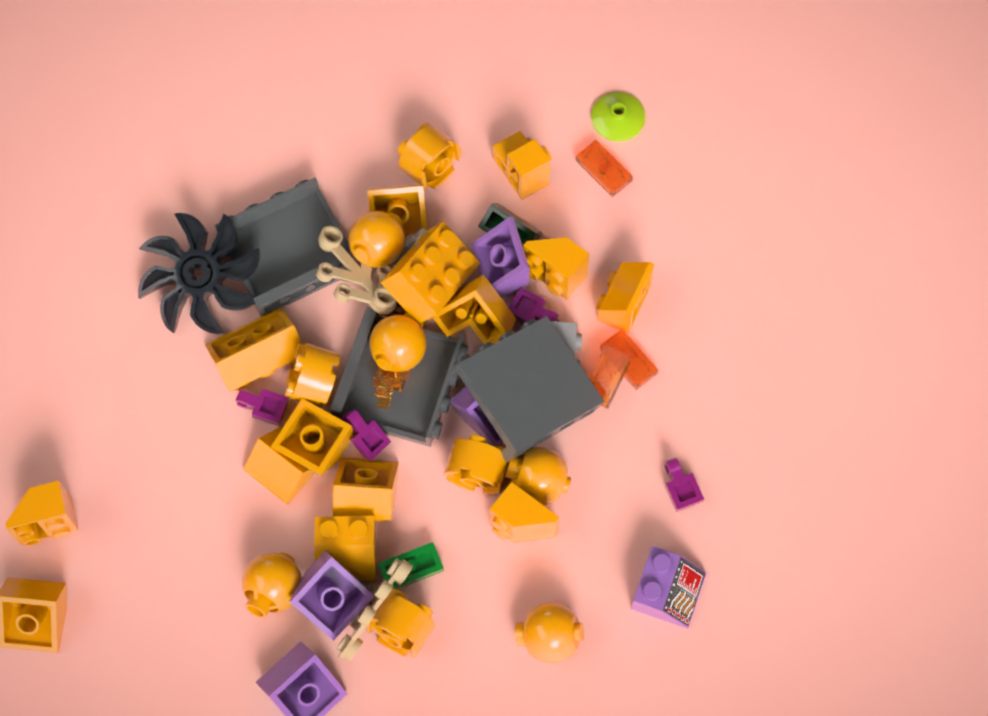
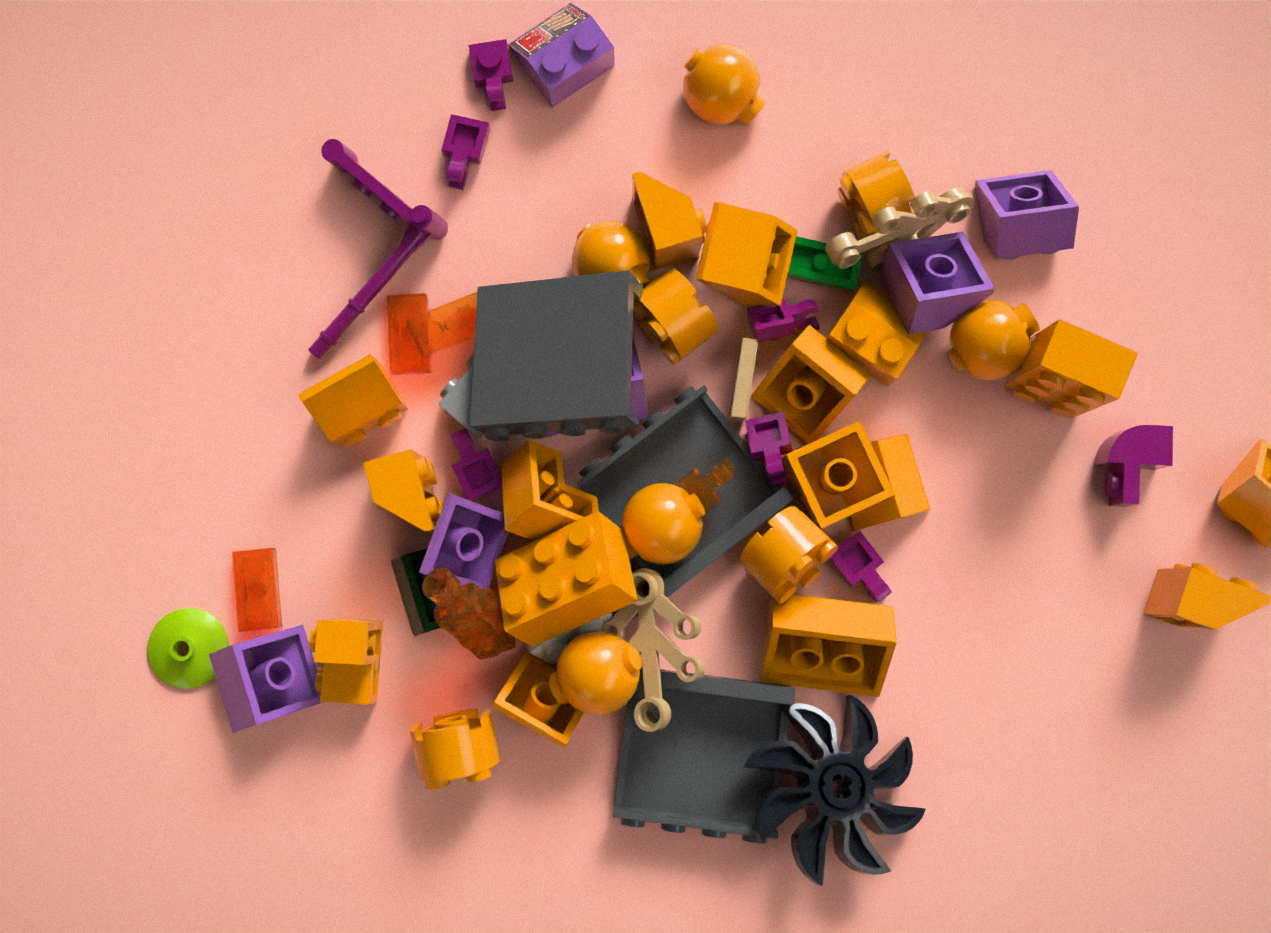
camera: 150 degrees left, 15 degrees up
(140, 583) = (1129, 452): none -> magenta brick
(209, 587) = (1072, 370): none -> light orange brick
(408, 462) = (743, 380): none -> tan tile
(413, 514) = (775, 322): none -> magenta plate
(458, 530) = (746, 255): none -> light orange slope
(474, 219) = (468, 614): none -> clear orange brick
(561, 125) = (266, 677): none -> medium lavender slope
(694, 420) = (422, 226): none -> magenta piece
(704, 550) = (491, 68): none -> magenta plate

